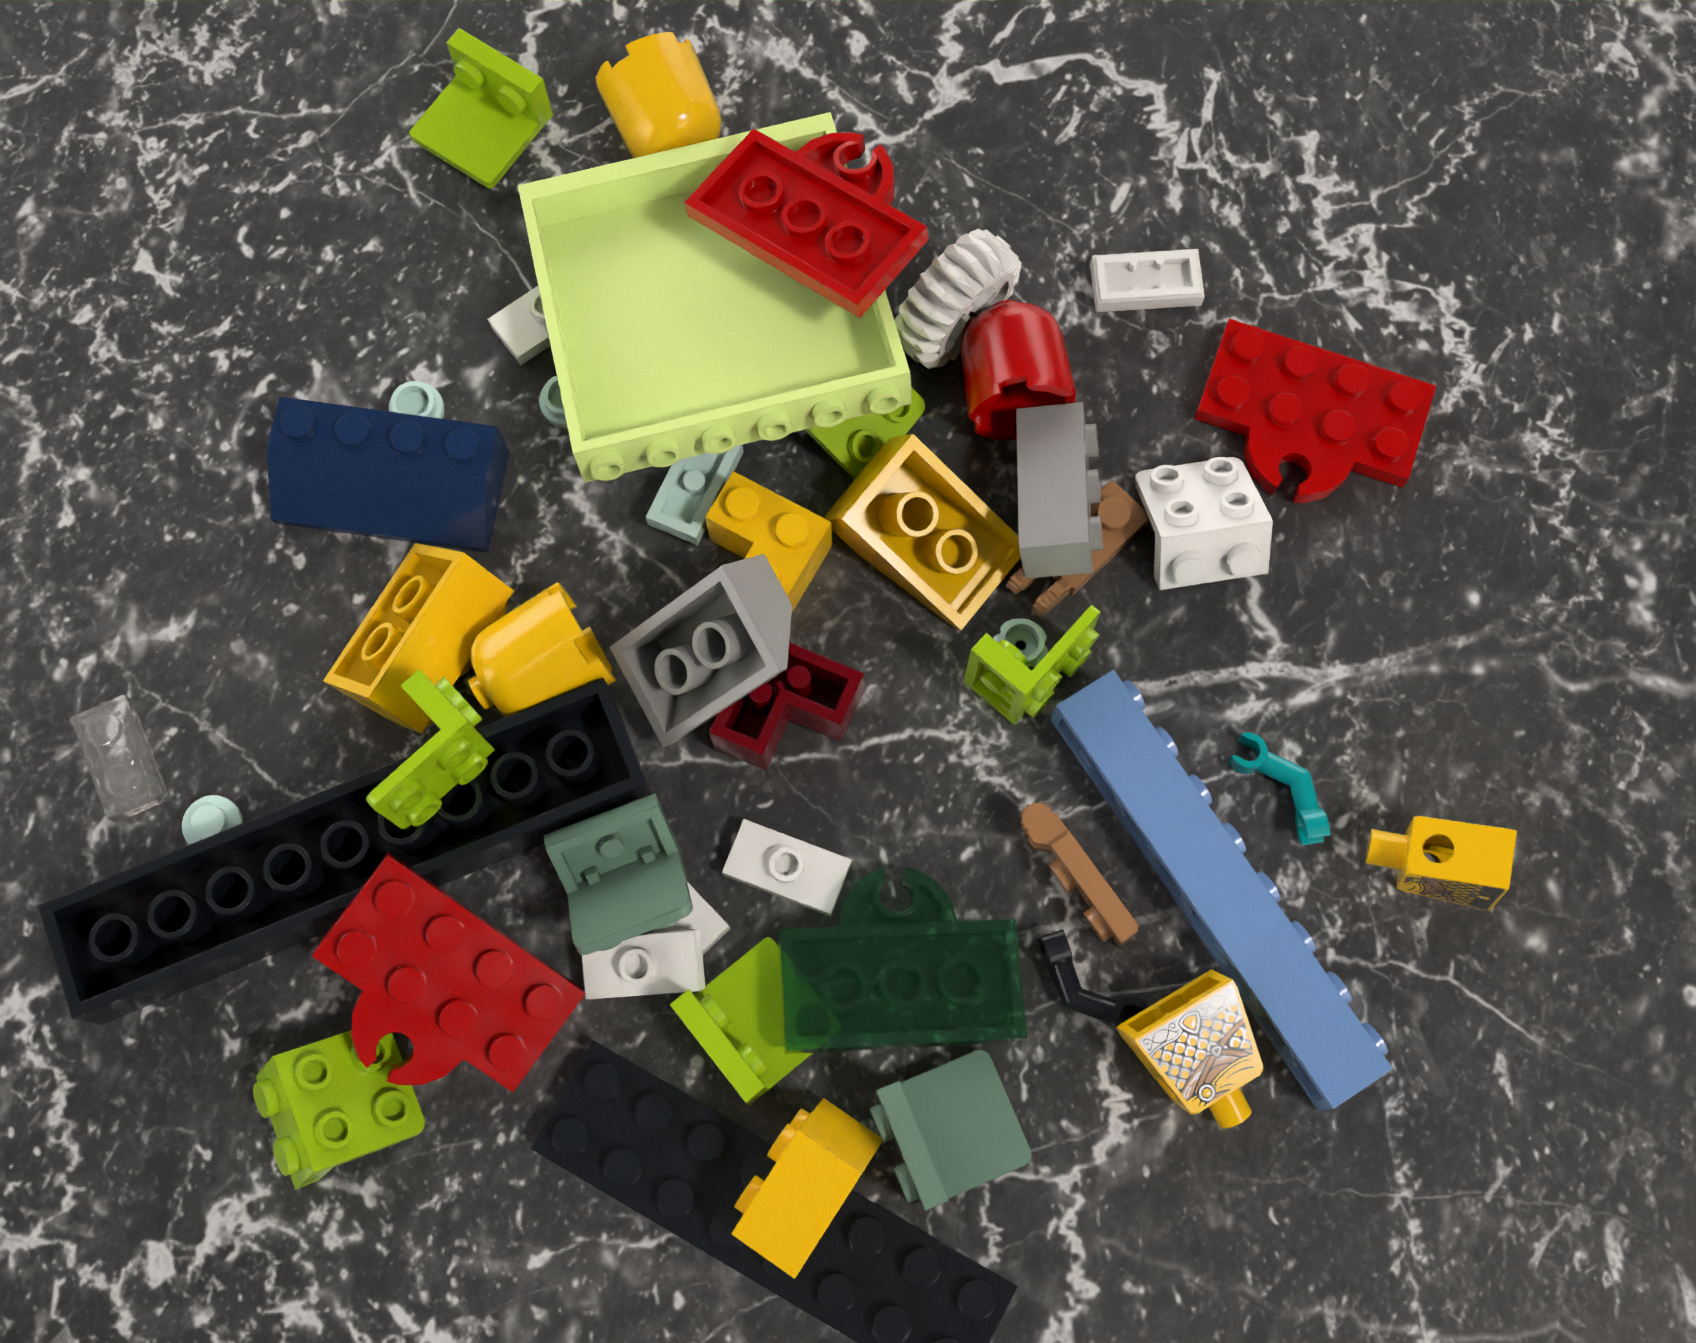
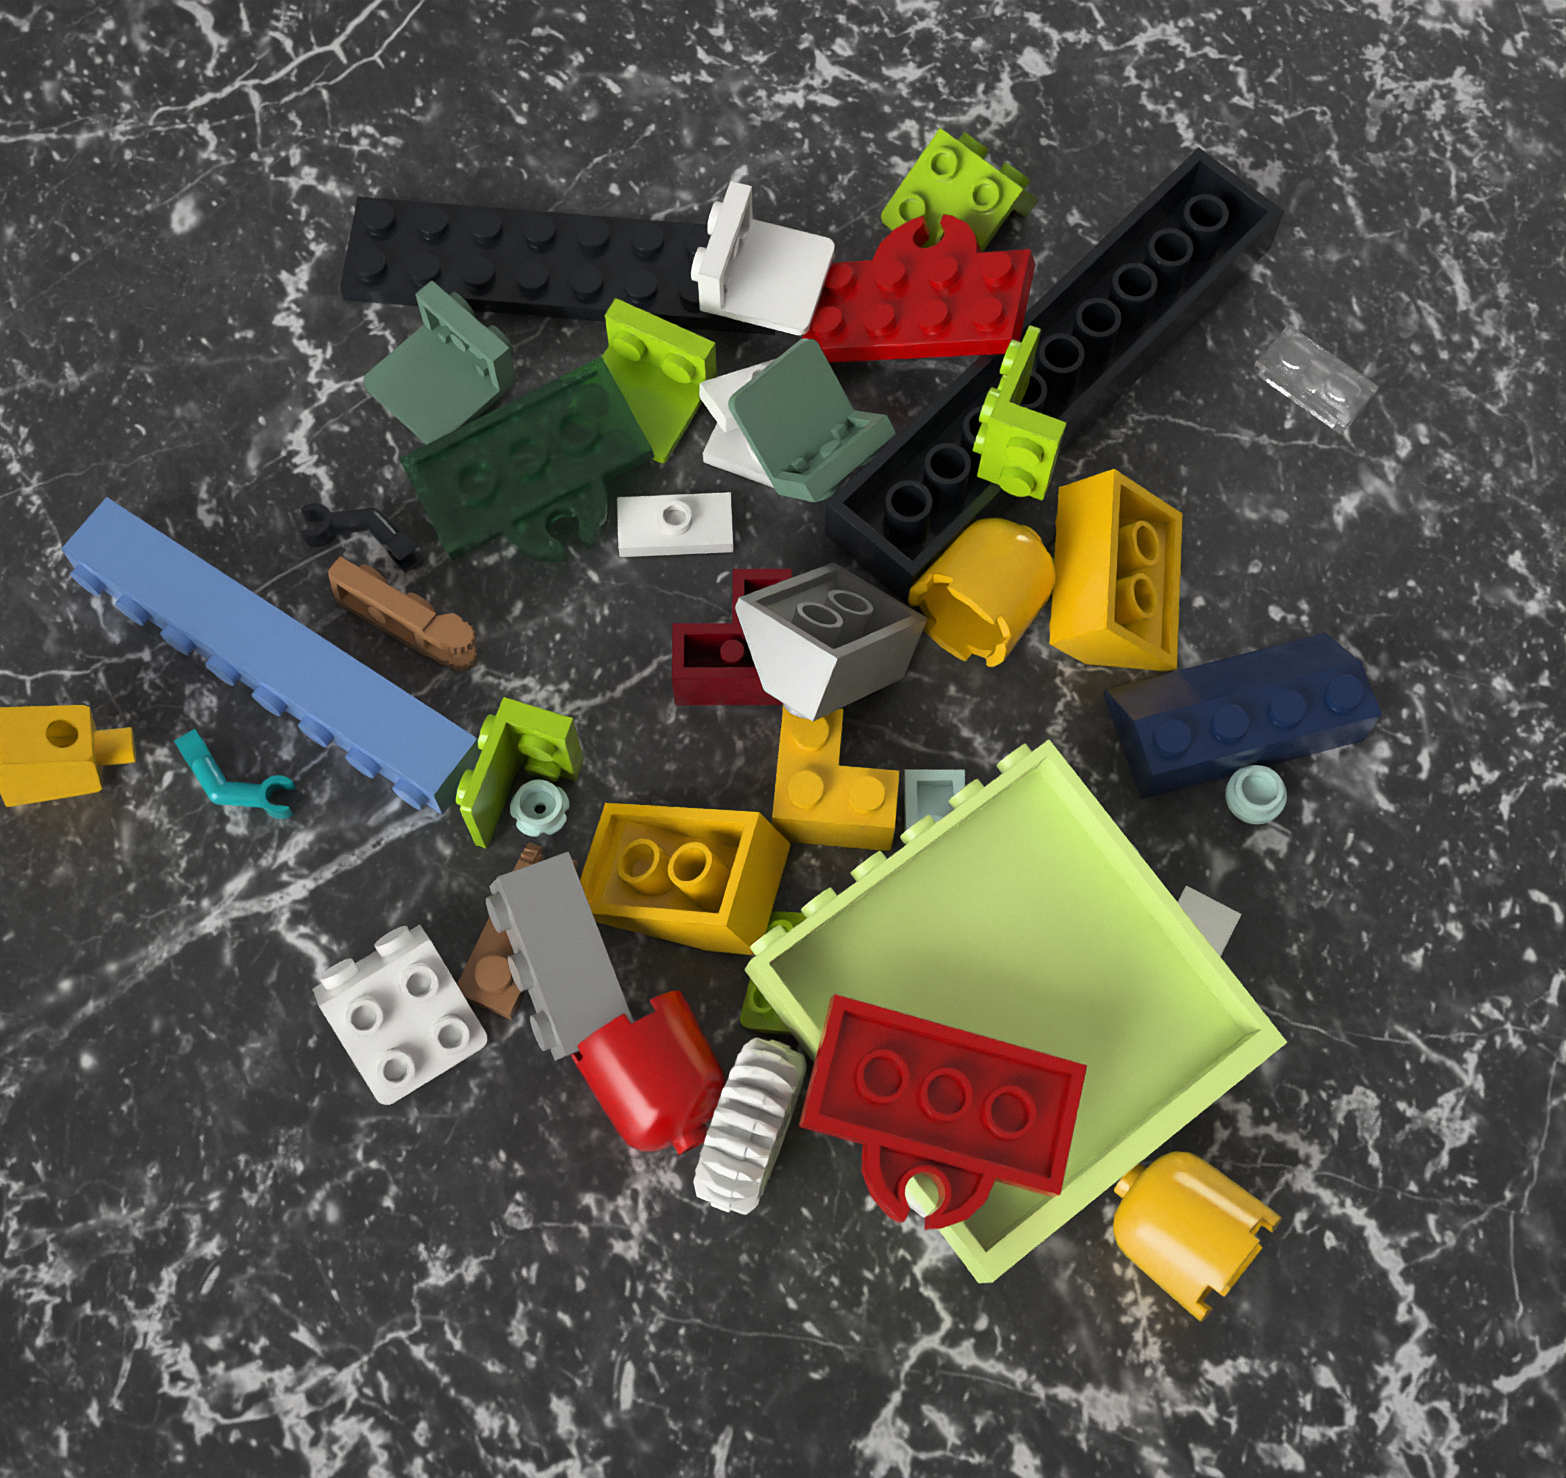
camera: 155 degrees right, 5 degrees down
(208, 817) = (1197, 358): light aqua plate -> none
(484, 112) = (1391, 1144): lime bracket -> none
(577, 1084) = (760, 268): none -> white bracket
(813, 1174) = (537, 272): yellow brick -> none
(1147, 280) = (553, 1271): white plate -> none
(1199, 1047) = (248, 507): torso -> none
(1313, 411) = (317, 1195): red plate -> none

